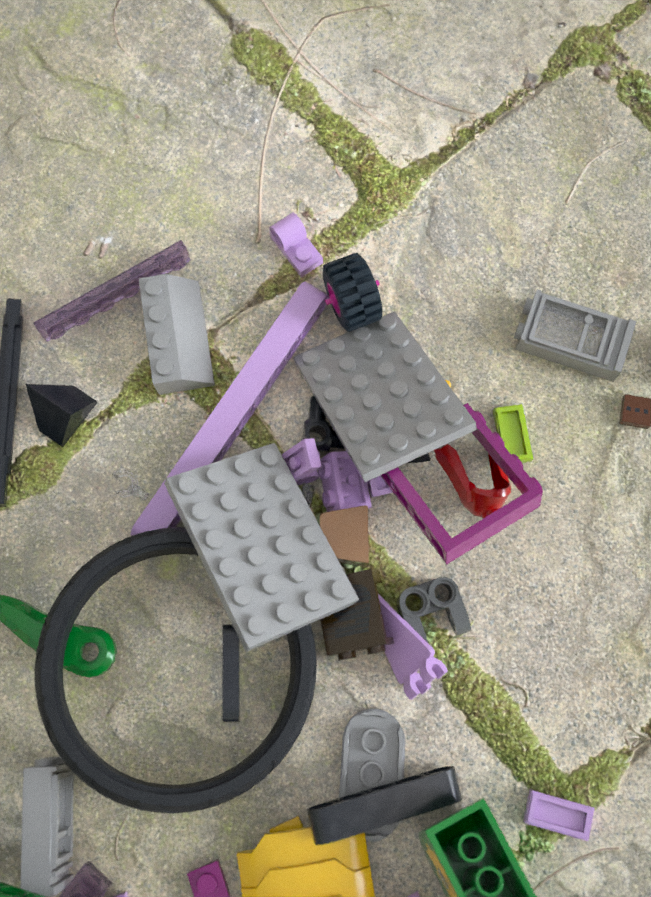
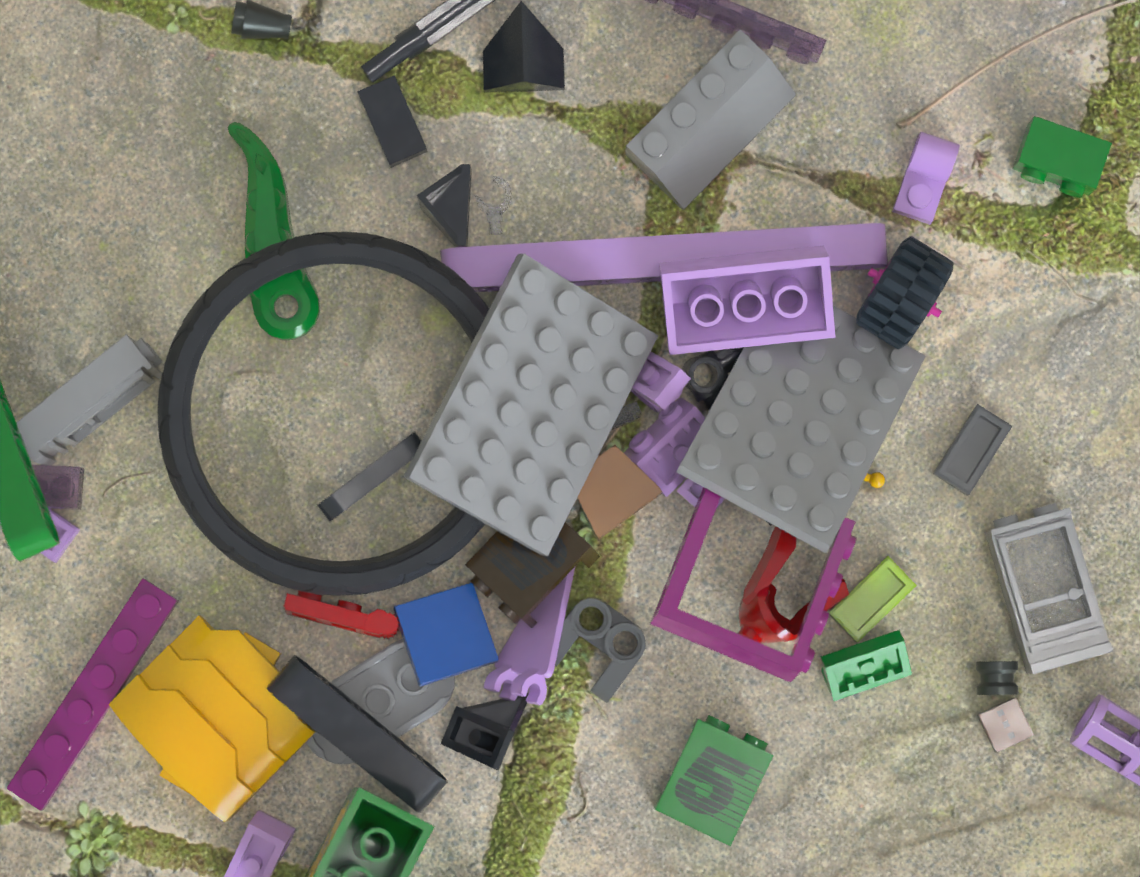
camera: 50 degrees right, 10 degrees up
(36, 510) = (392, 121): none -> black tile
(105, 511) = (449, 204): none -> black slope
(292, 377) = (747, 300): none -> lavender slope
(304, 756) = (343, 616): none -> red hinge
(338, 170) = (1061, 157): none -> green brick
(360, 700) = (446, 634): none -> blue tile
(437, 719) = (484, 730): none -> black slope
(465, 323) = (972, 450): none -> dark grey tile
(553, 460) = (866, 665): none -> bracket
(563, 598) = (715, 780): none -> green panel
(607, 396) = (997, 678): none -> pearl dark grey wheel

